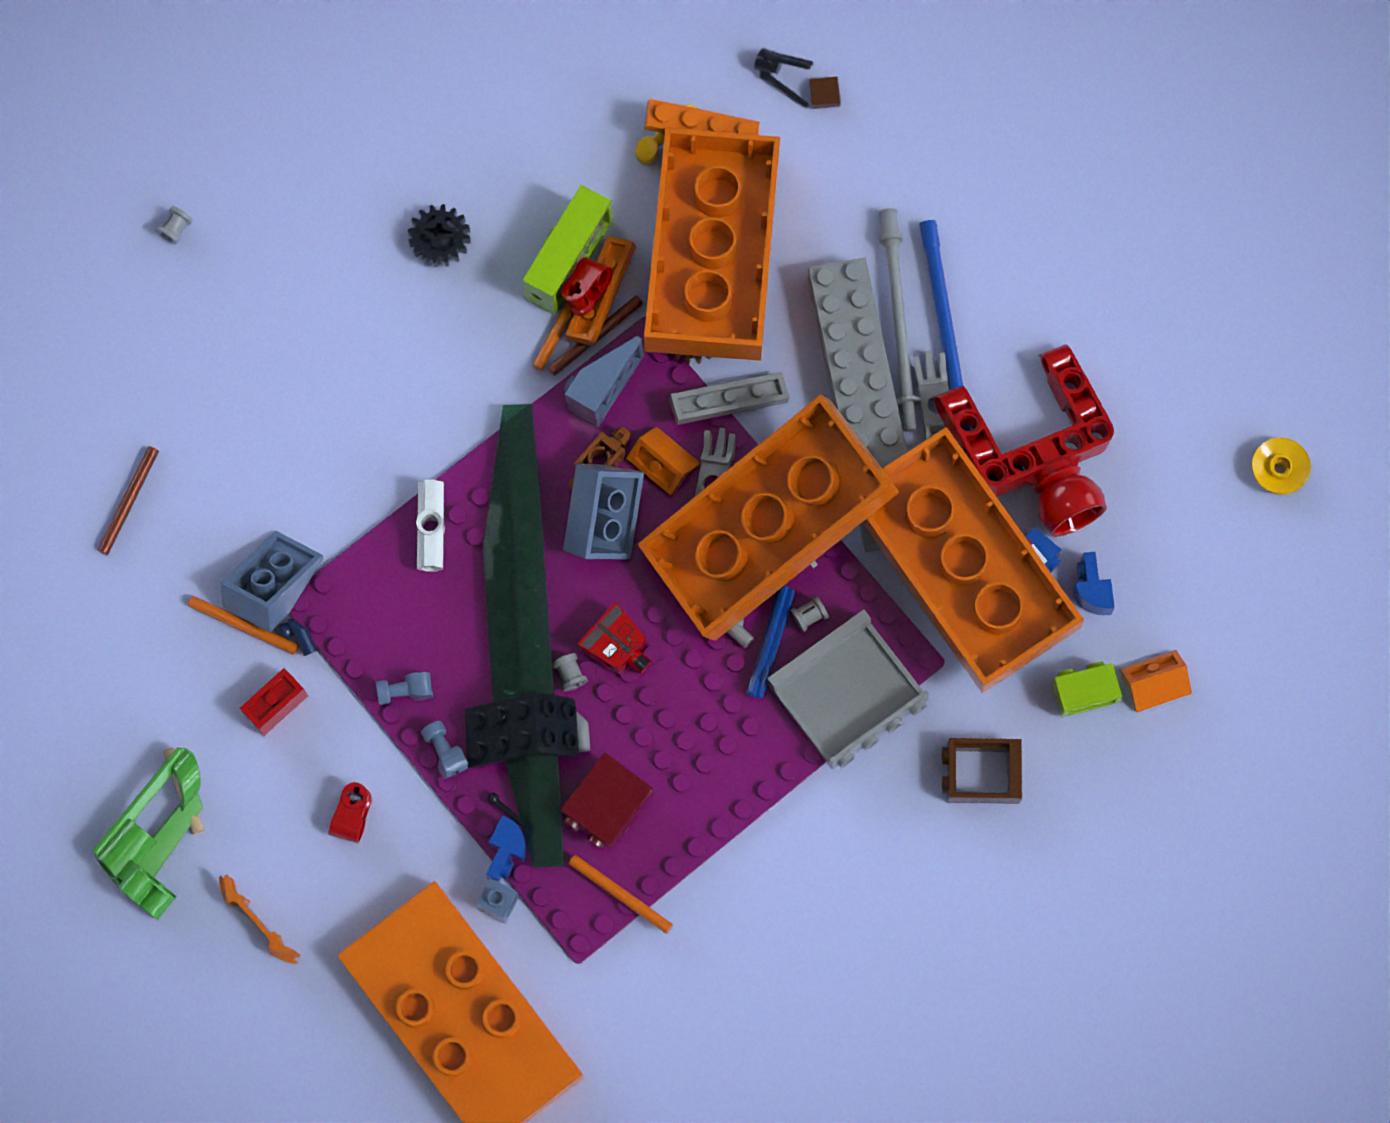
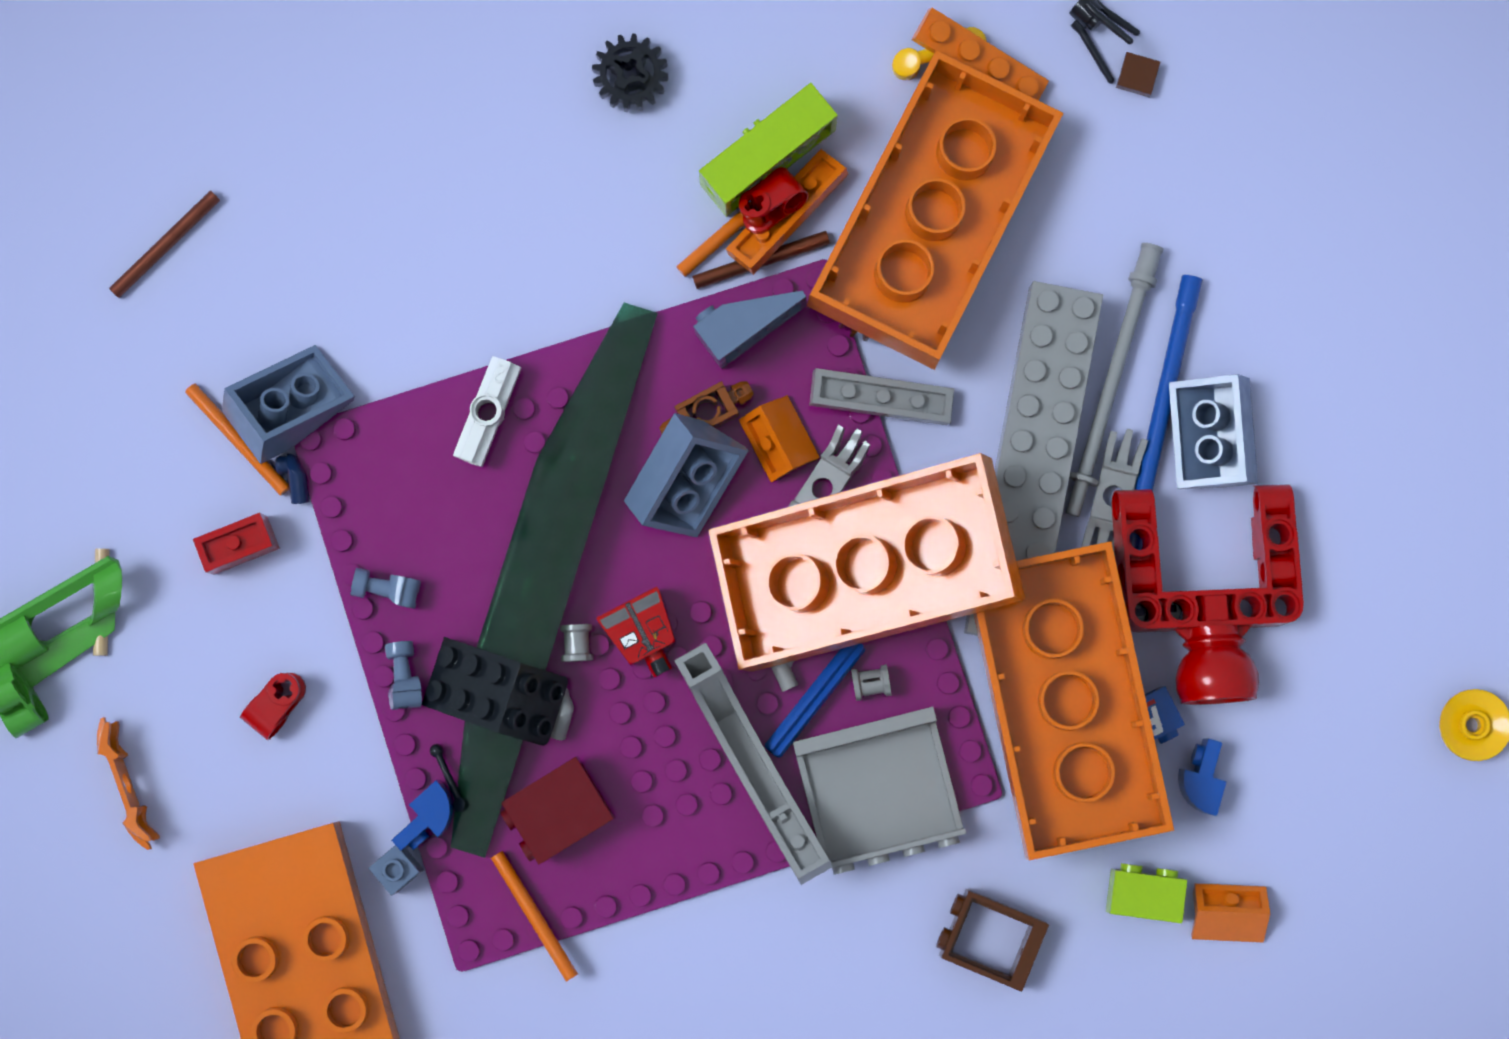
camera: 20 degrees right, 10 degrees up
(737, 705) = (752, 763): none -> light grey arch
(991, 327) = (1213, 432): none -> sand blue slope

